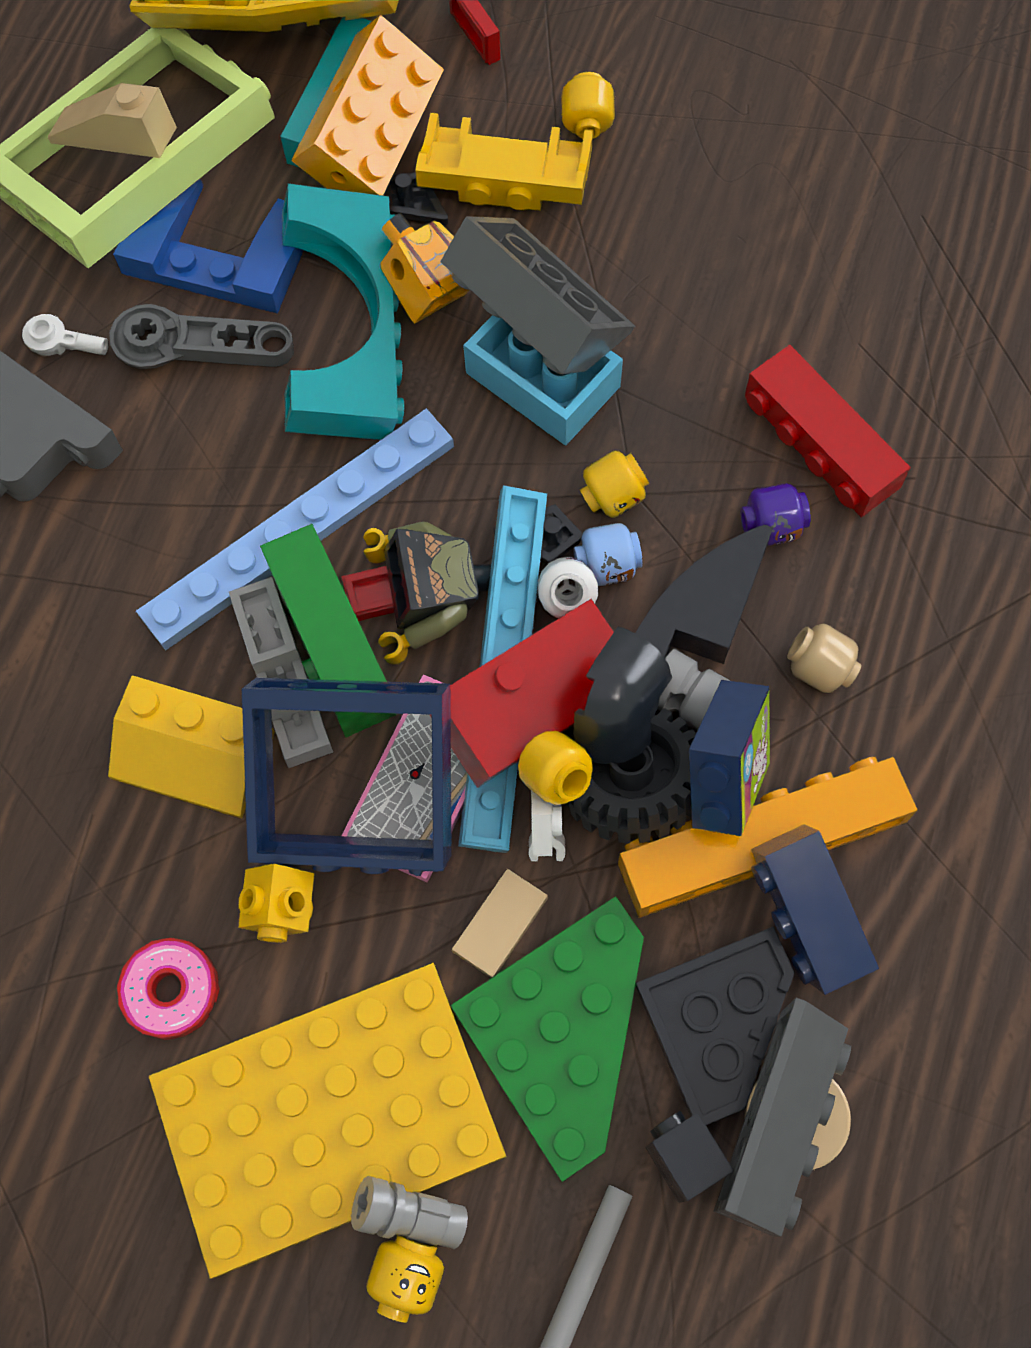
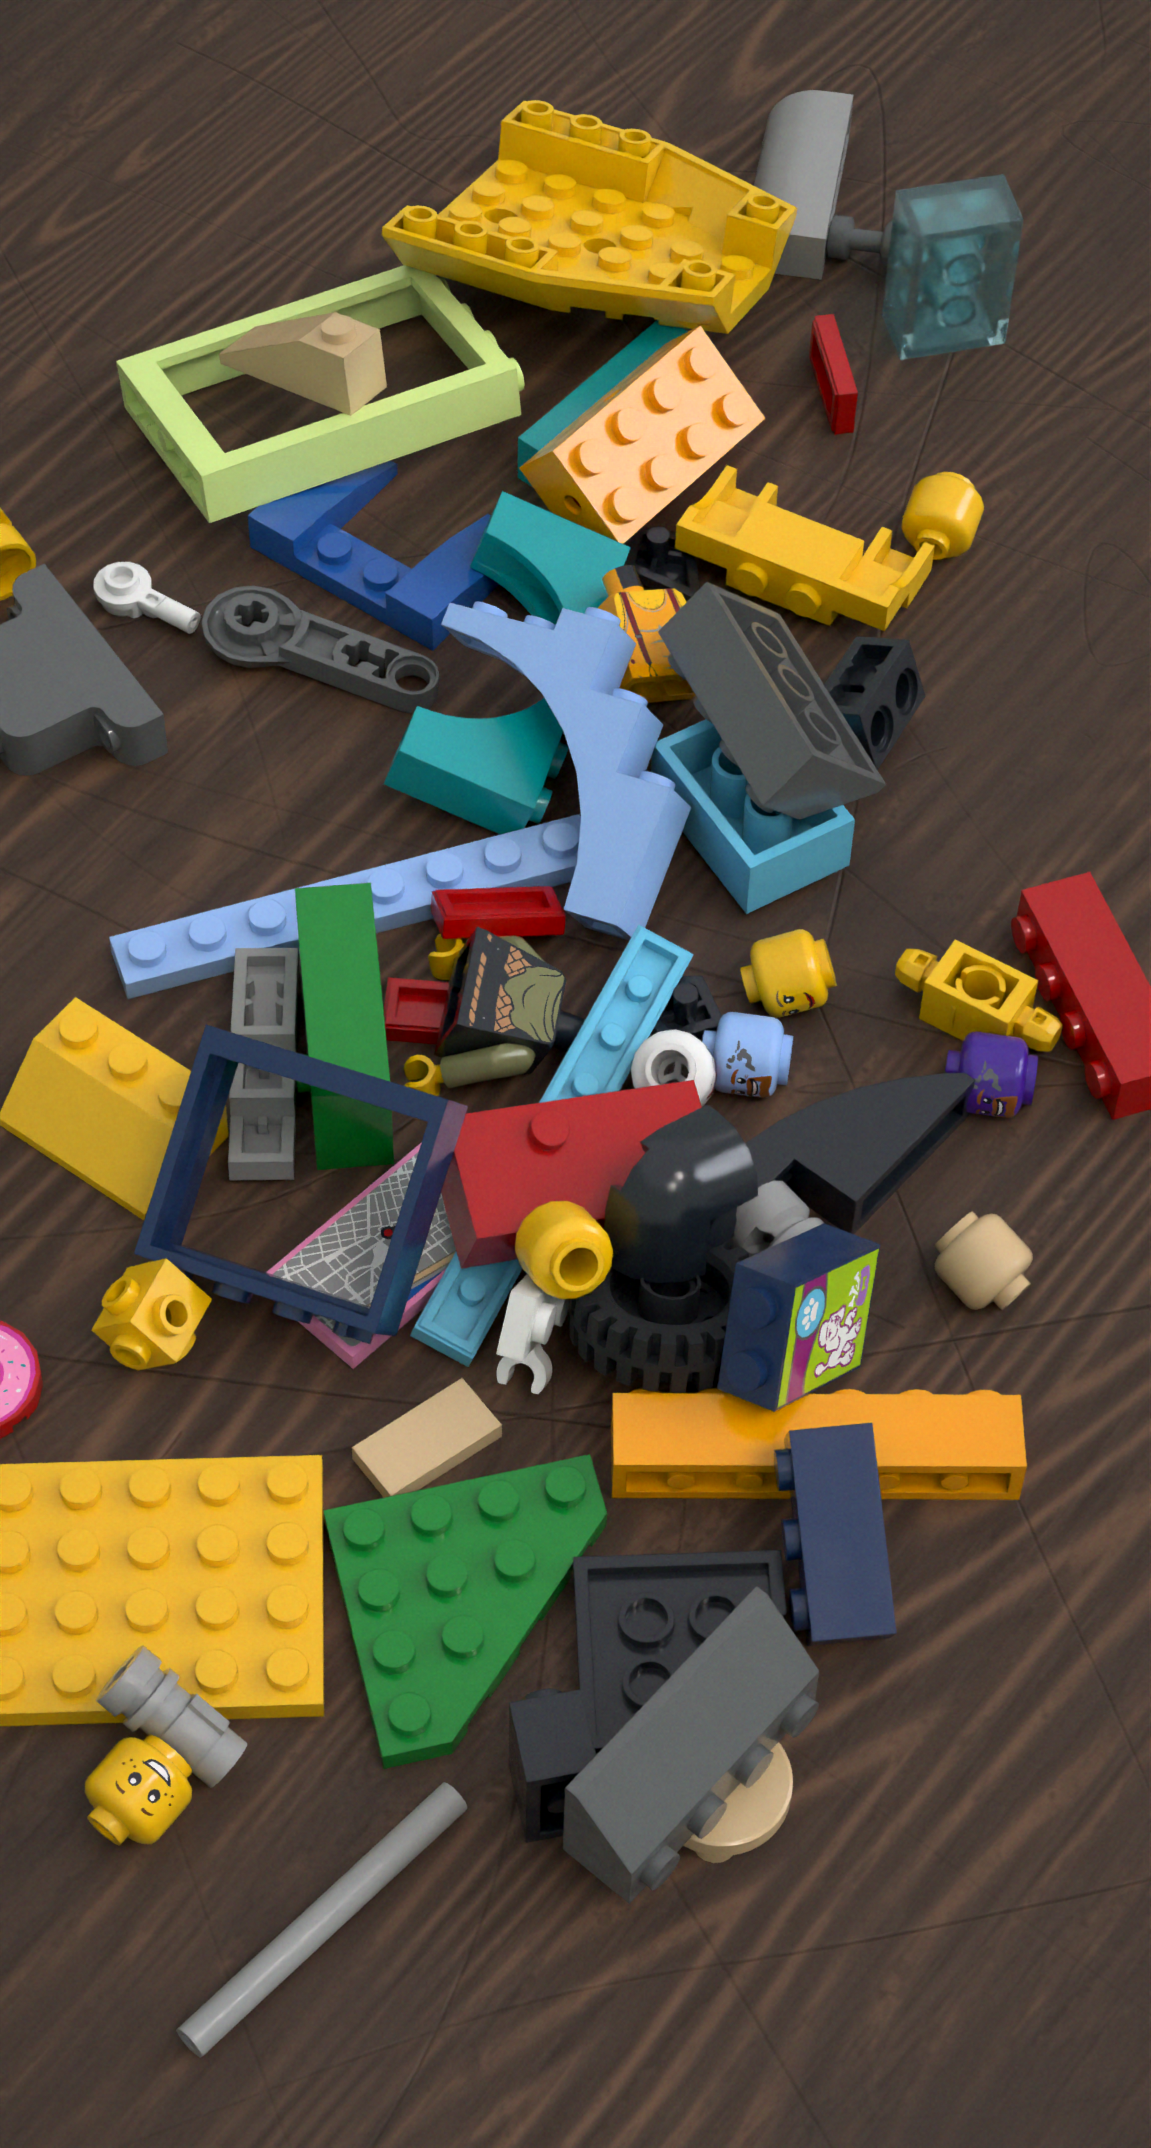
camera: 15 degrees right, 15 degrees down
(399, 503) = (499, 911): none -> red tile
(466, 411) = (626, 812): none -> light blue arch
(595, 252) = (877, 691): none -> black brick
(748, 445) = (977, 995): none -> yellow piece

